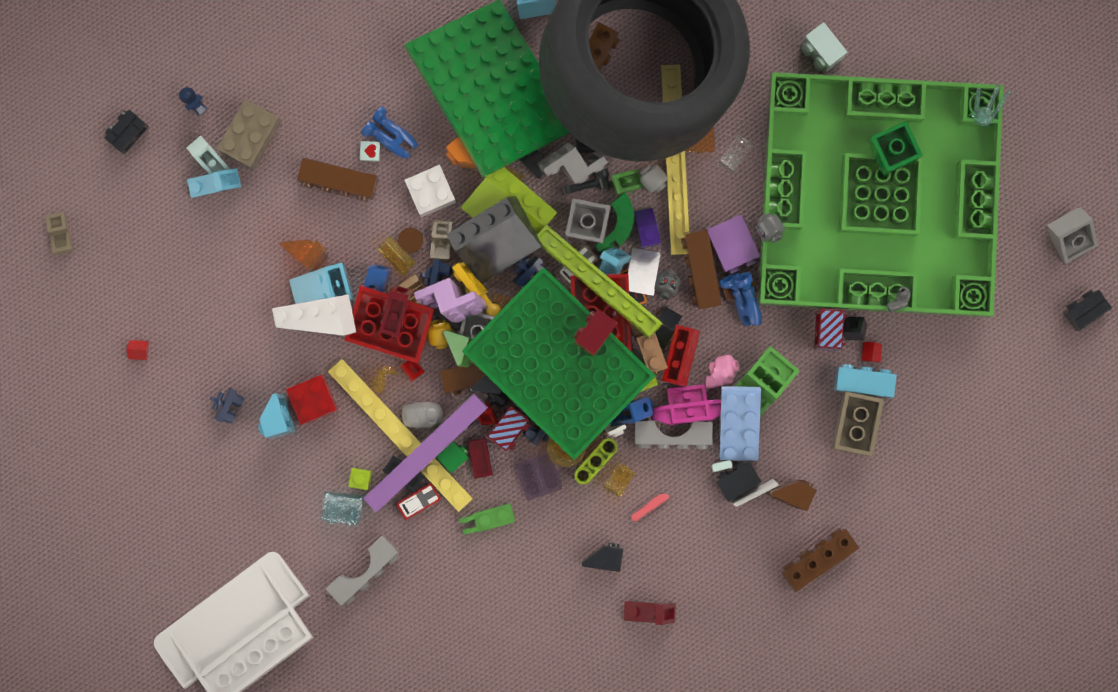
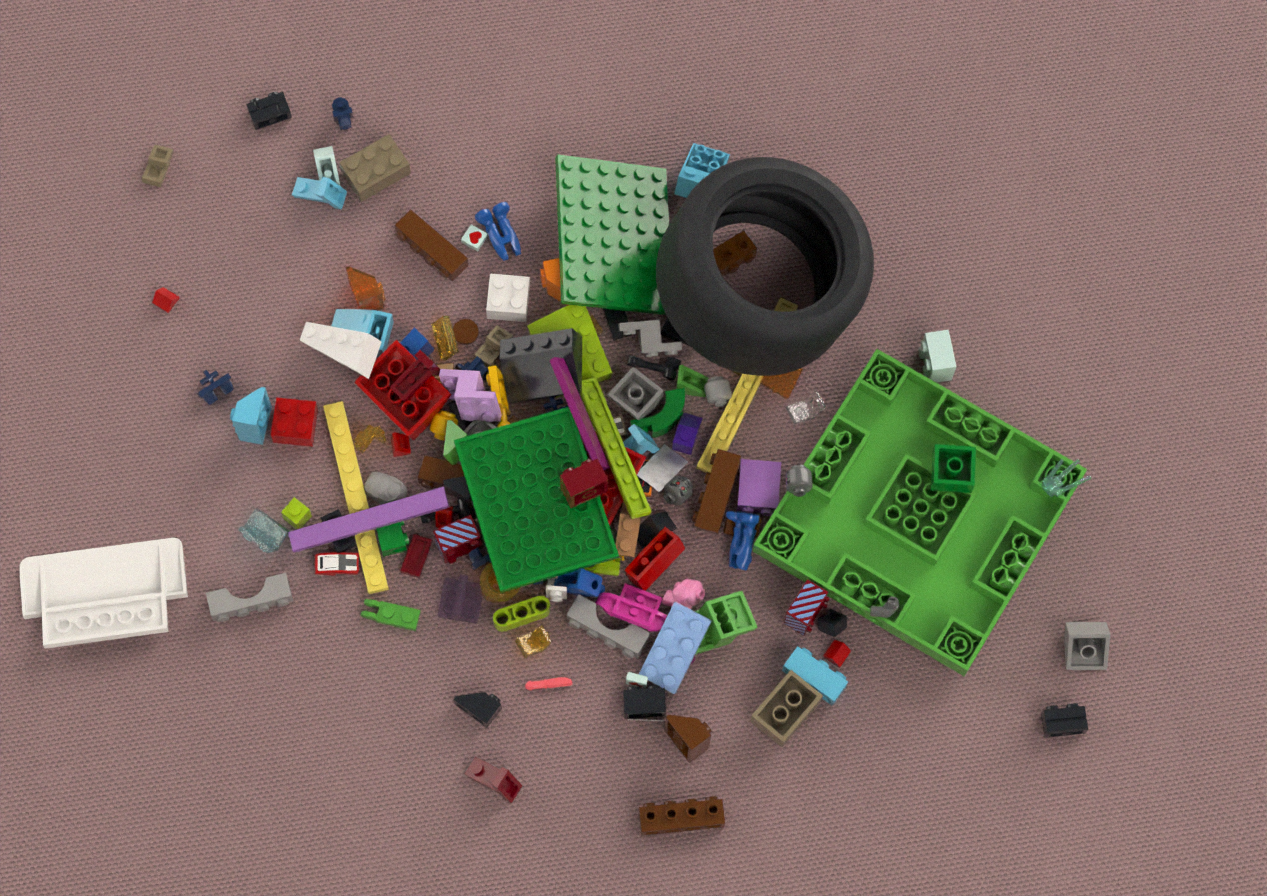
camera: 25 degrees right, 15 degrees down
(554, 269) = (578, 411): none -> magenta tile

